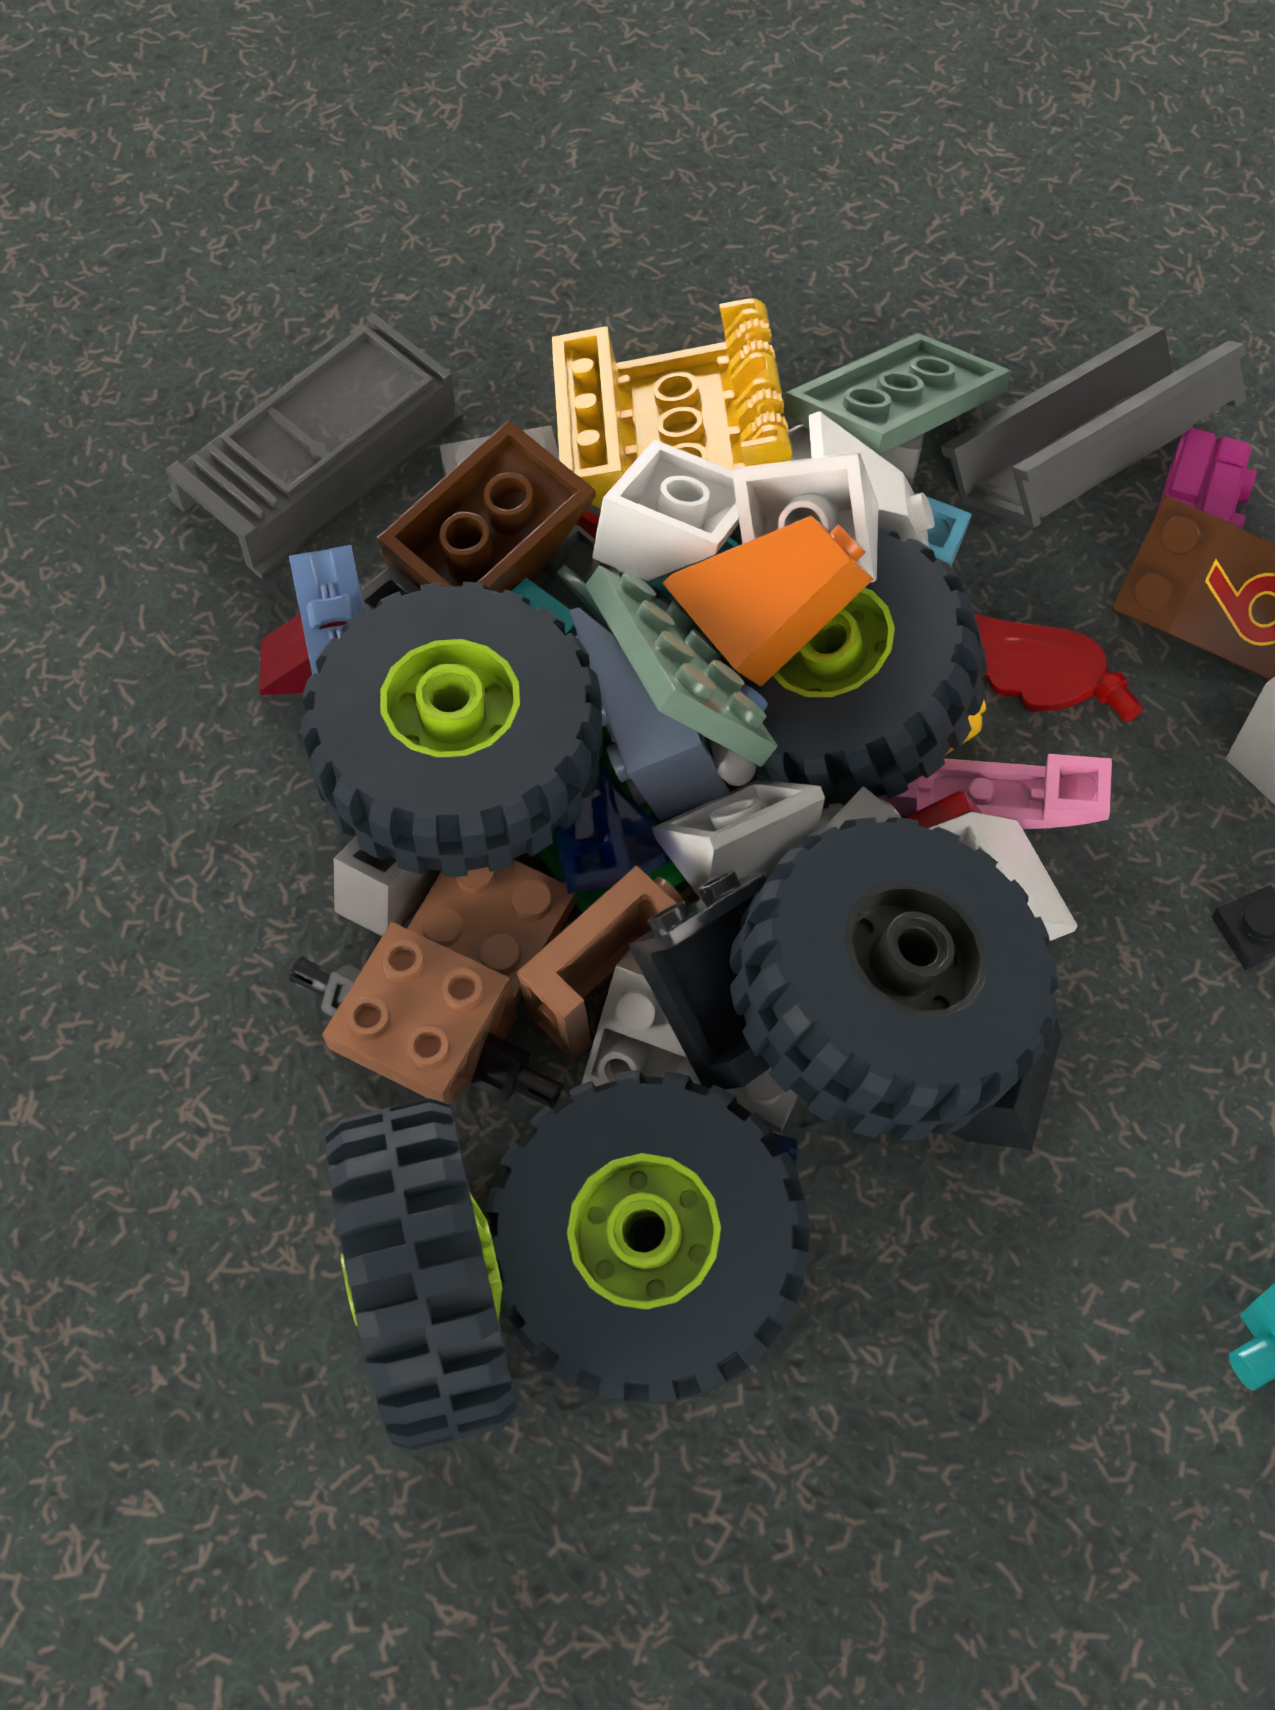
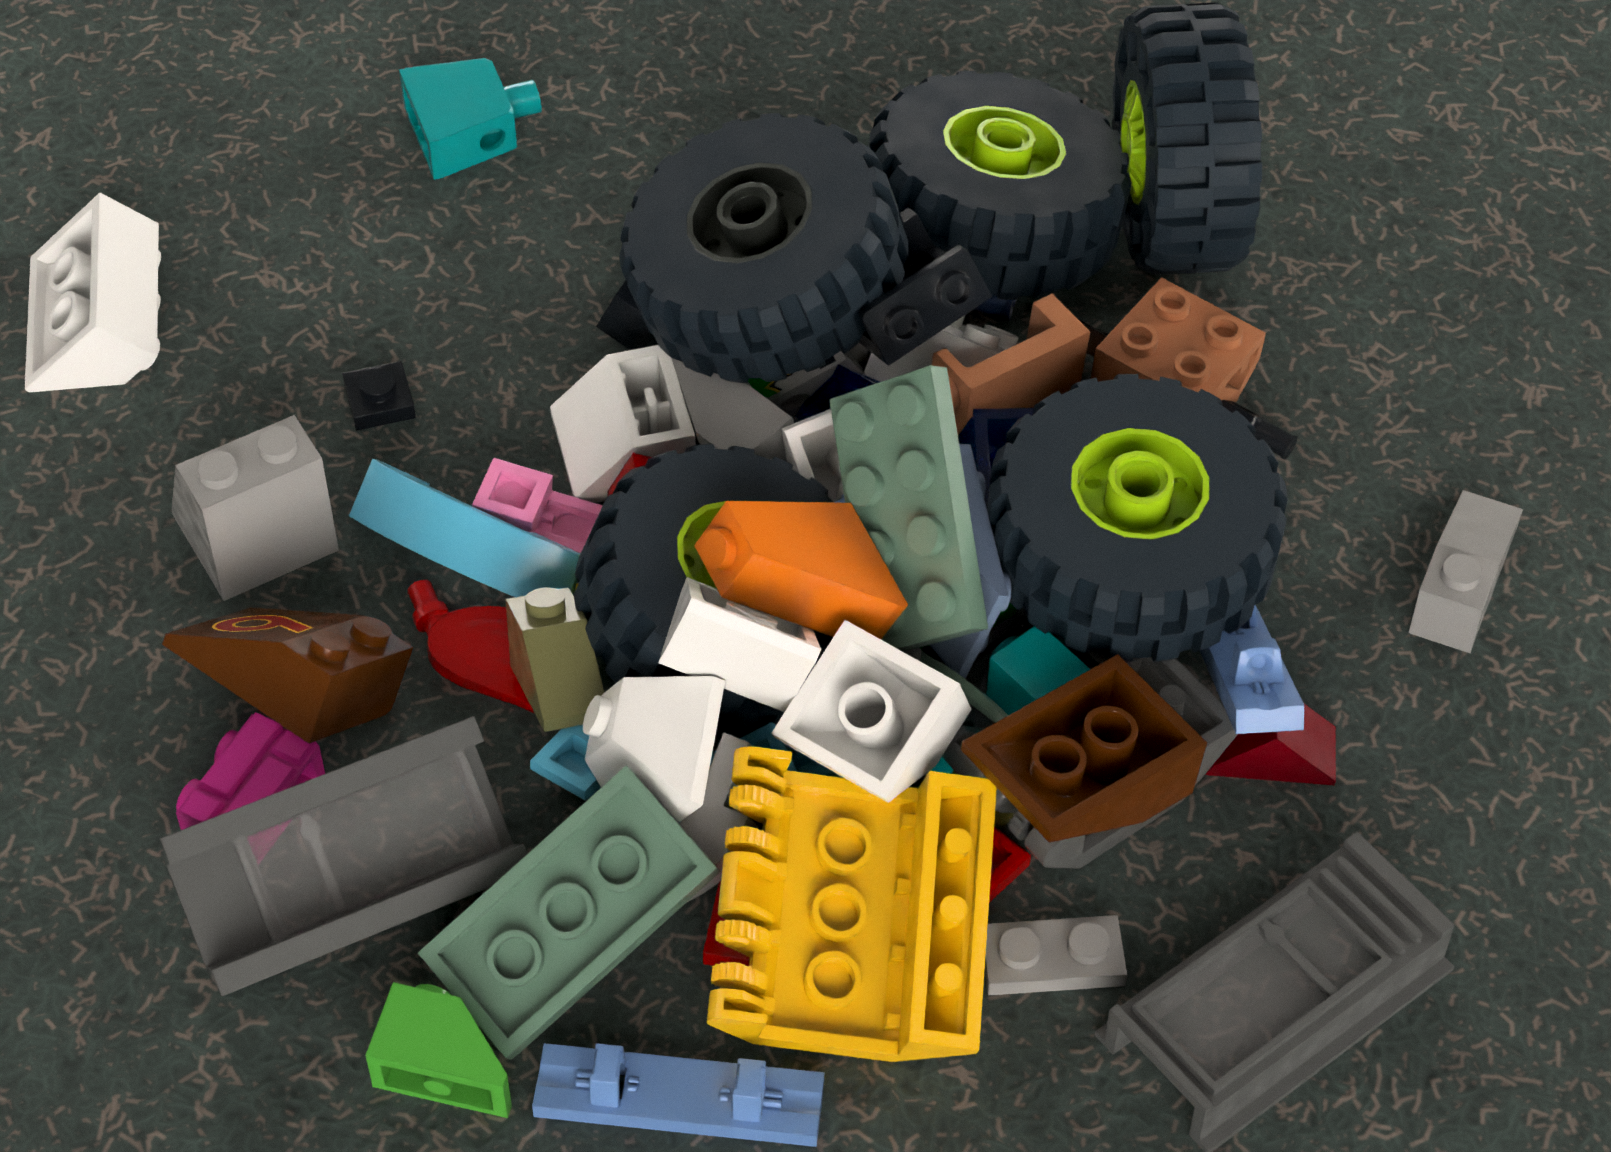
camera: 170 degrees left, 10 degrees down
(118, 858) = (1464, 571): none -> light grey slope
(795, 328) = (679, 1094): none -> medium blue hinge
(968, 316) = (436, 1052): none -> bright green slope
(995, 598) = (552, 656): none -> olive slope
(1190, 781) = (460, 534): none -> medium azure slope

